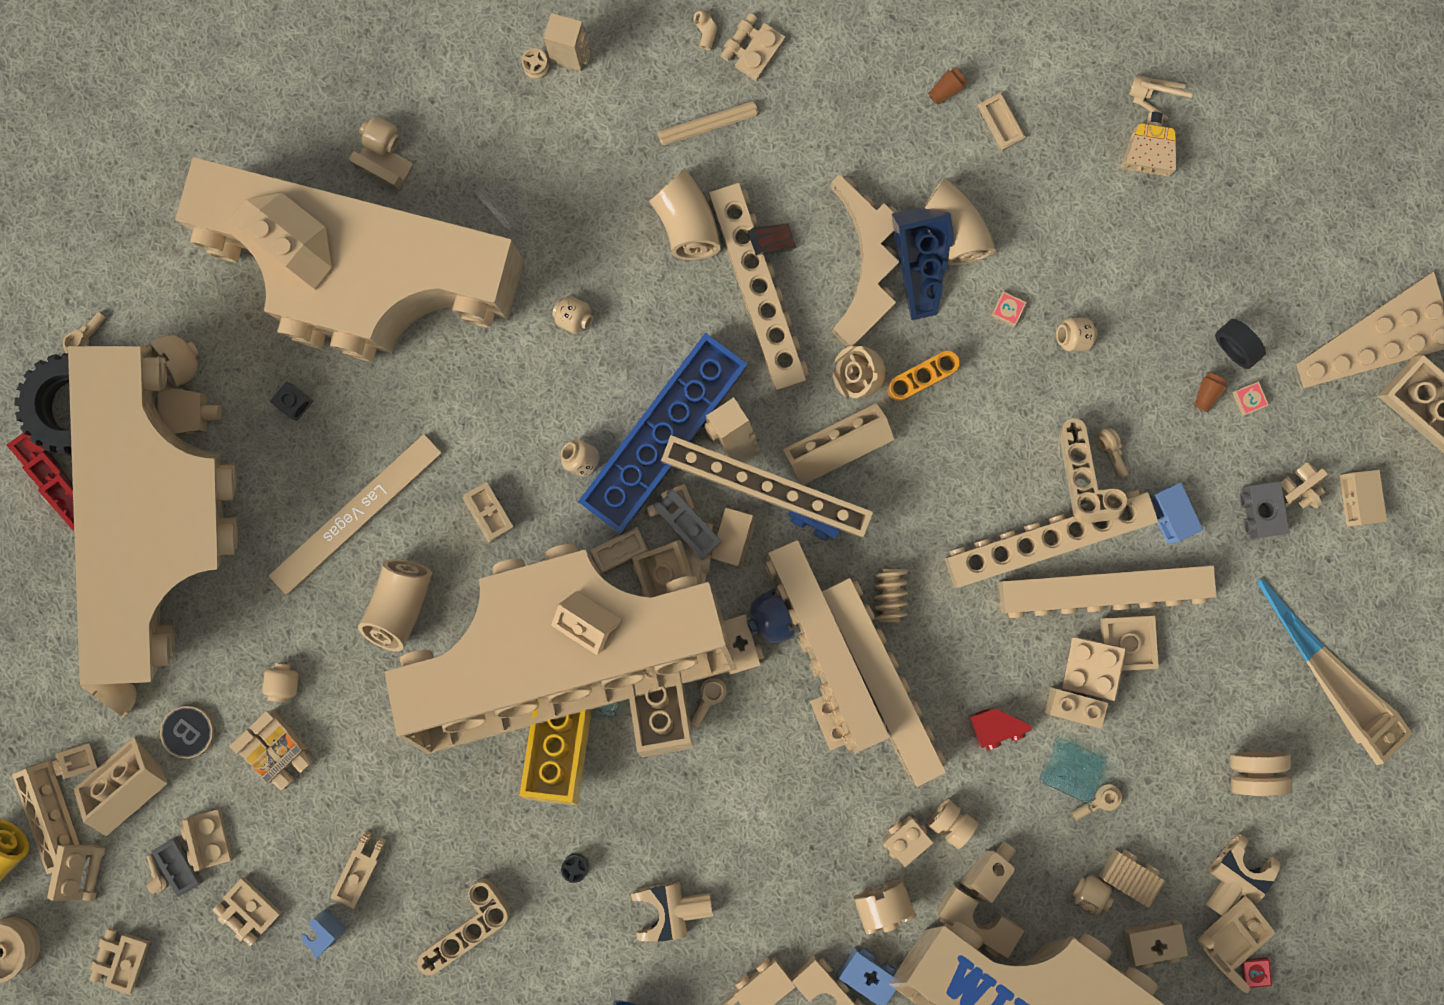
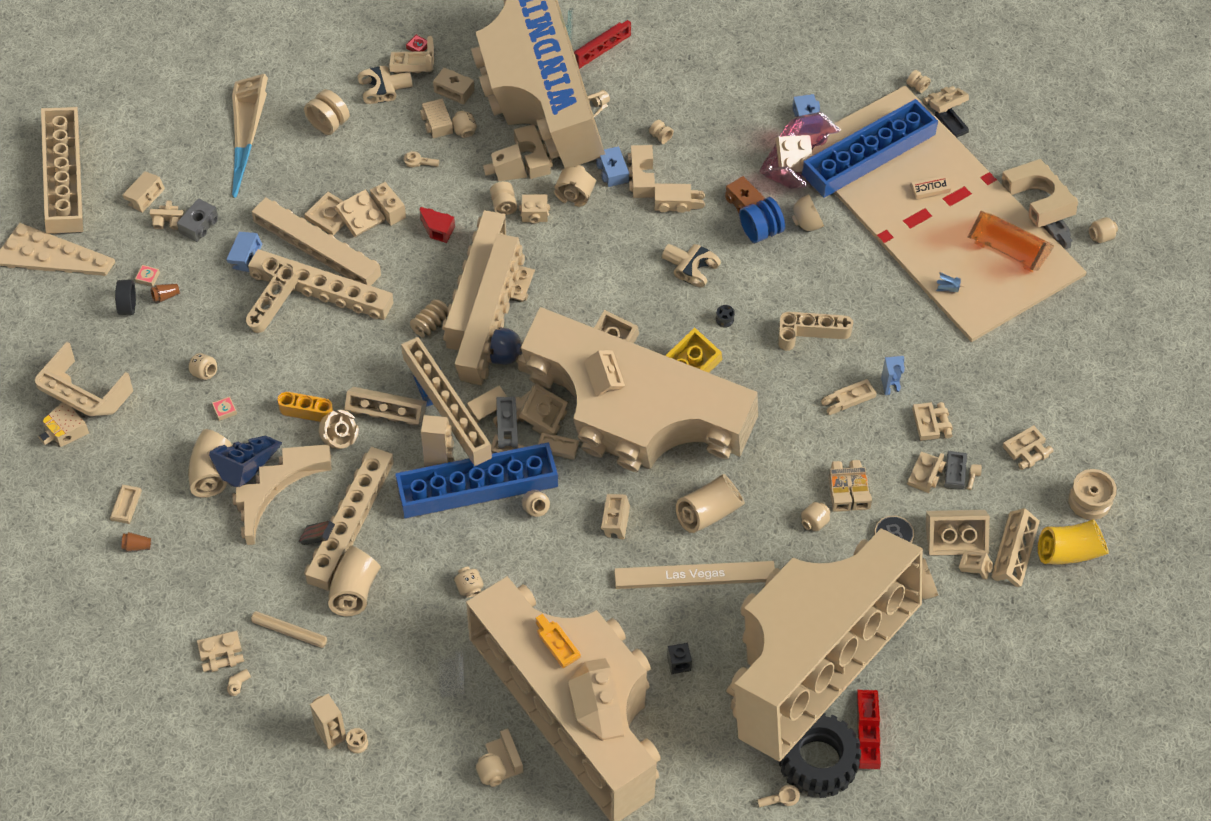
camera: 140 degrees left, 30 degrees down
(69, 869) = (1017, 503): tan plate -> none
(179, 358) = (727, 735): tan cylinder -> none
(375, 263) = (557, 641): none -> light orange hinge
(1073, 770) = (418, 180): clear light blue hinge -> none
(1110, 442) = (241, 305): tan plate -> none
(1143, 87) = (33, 459): tan plant -> none
(1201, 174) = (59, 385): none -> tan windscreen

